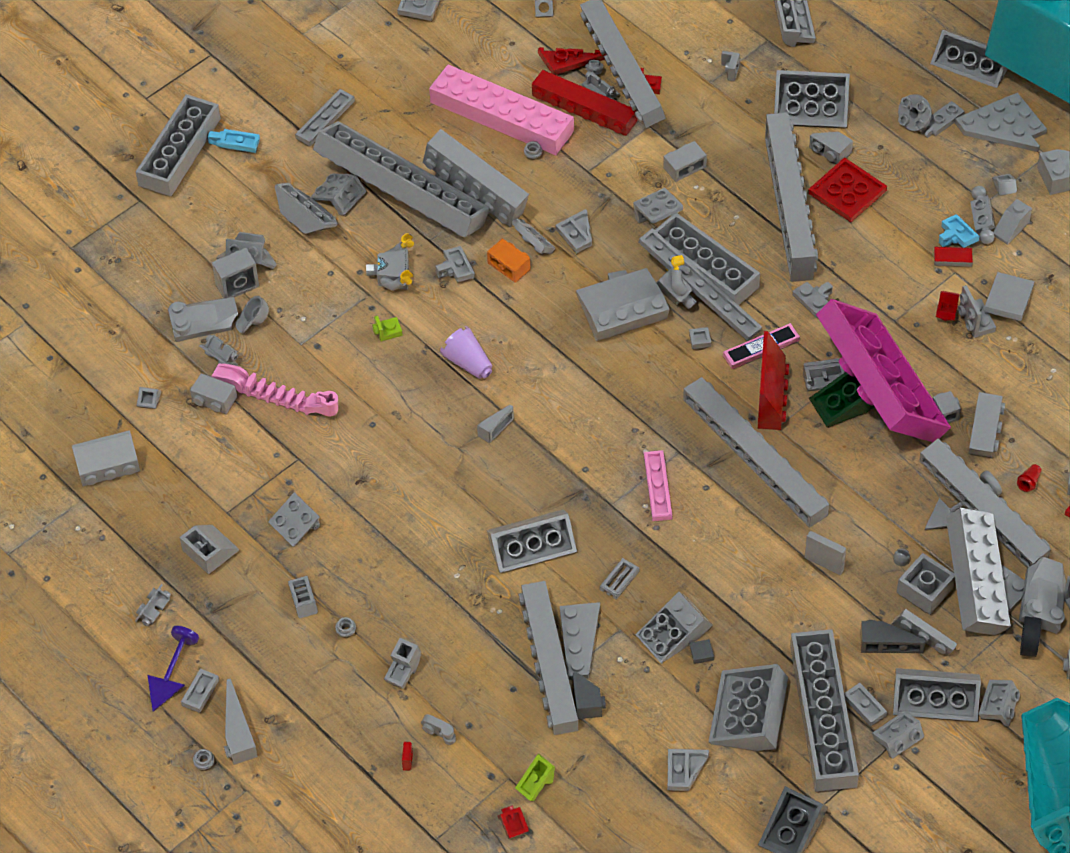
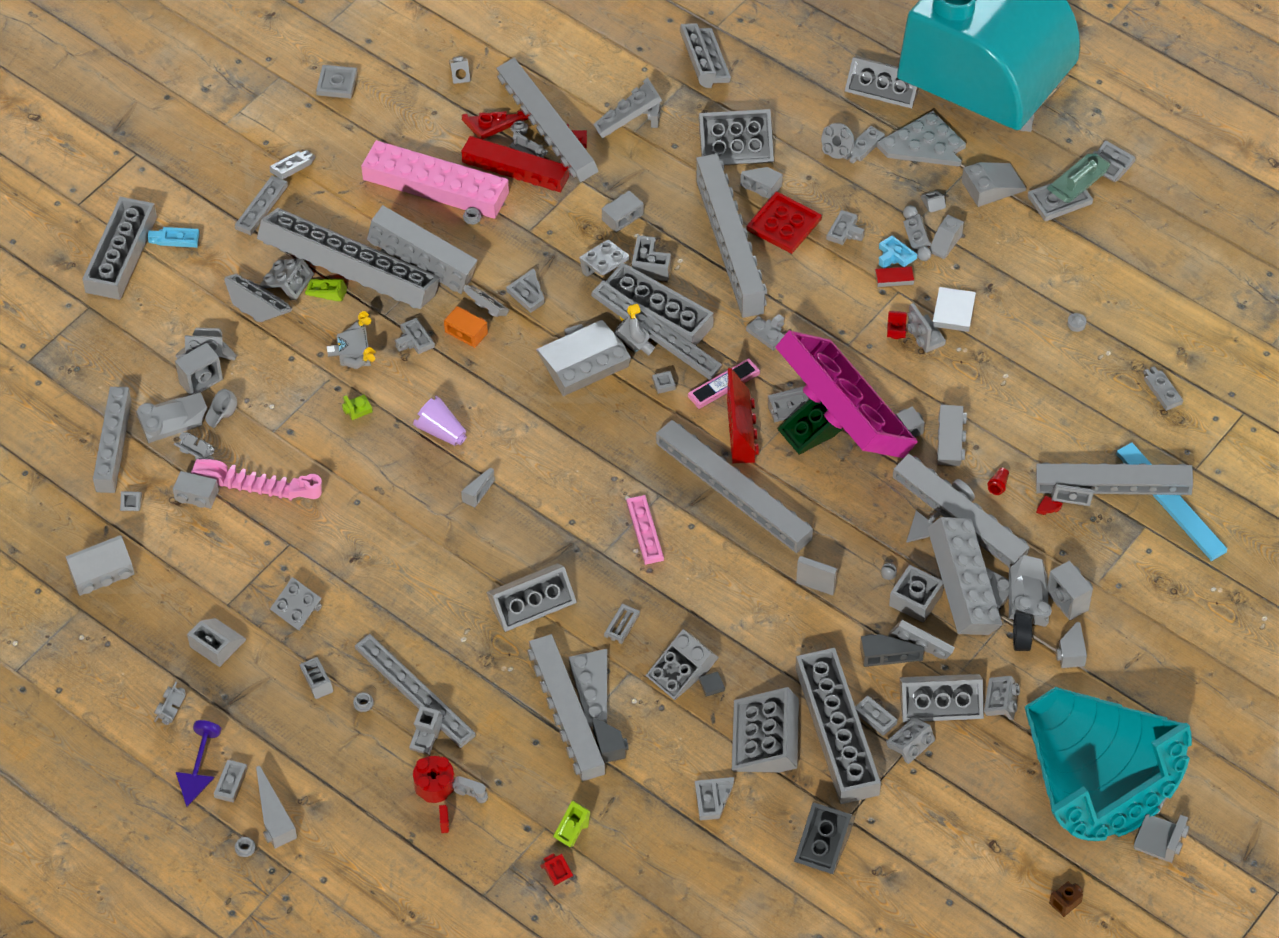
camera: 10 degrees left, 0 degrees up
(139, 334) = (112, 440): none -> light grey brick
(362, 80) = (292, 164): none -> light grey hinge
(377, 207) = (327, 289): none -> lime slope
(399, 620) = (413, 689): none -> light grey tile
(403, 713) = (433, 778): none -> red brick
(703, 215) = (648, 261): none -> light grey brick
(704, 60) = (628, 109): none -> light grey wing
(909, 202) = (845, 228): none -> light grey hinge

